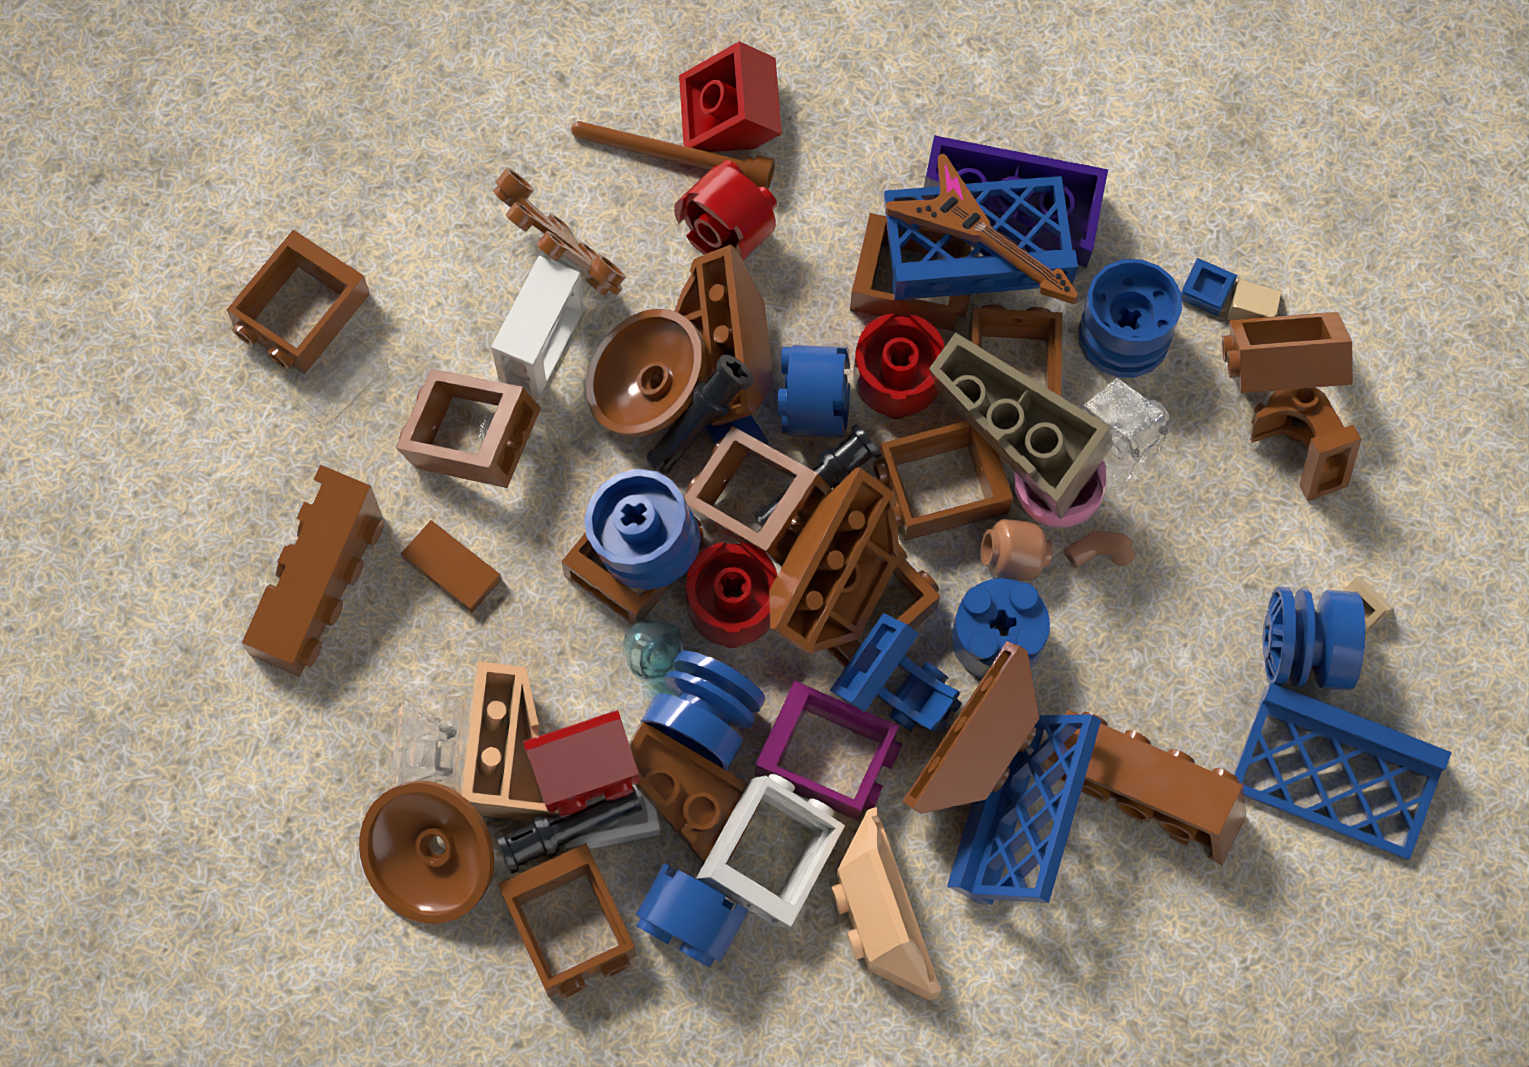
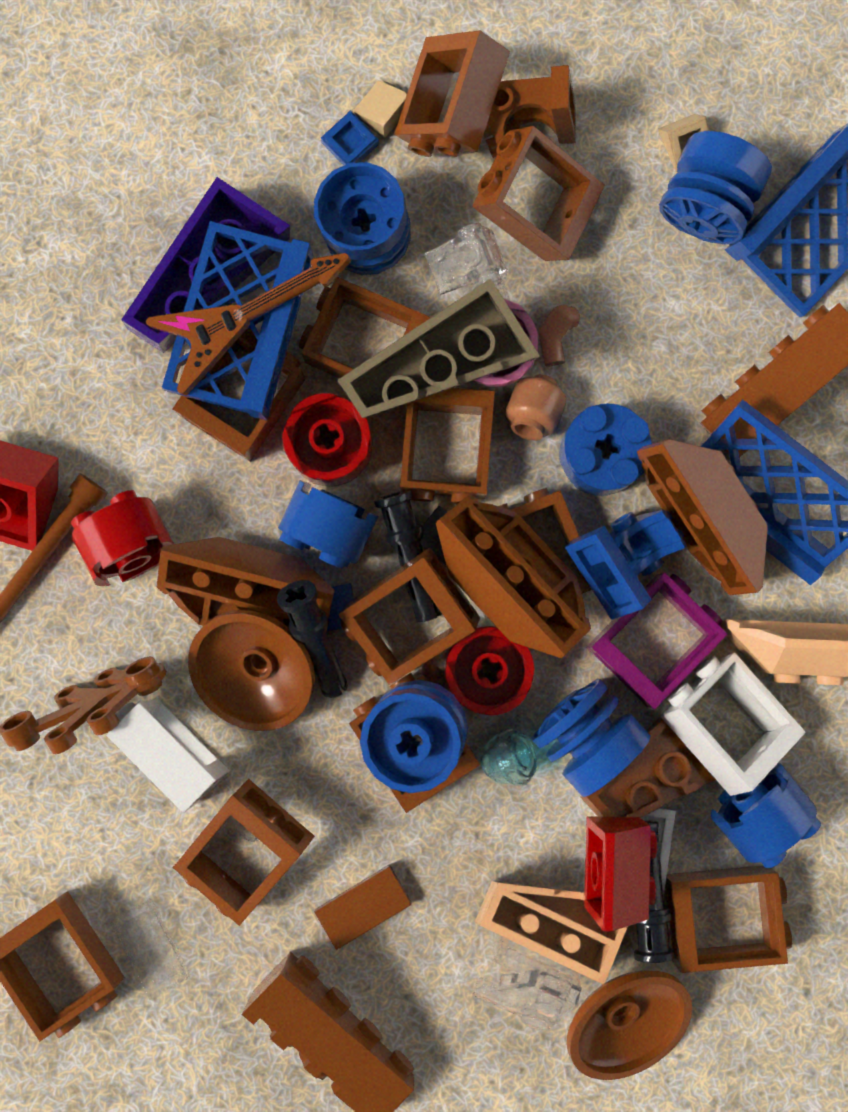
camera: 65 degrees left, 15 degrees up
(1224, 514) = (571, 210): none -> dark orange window

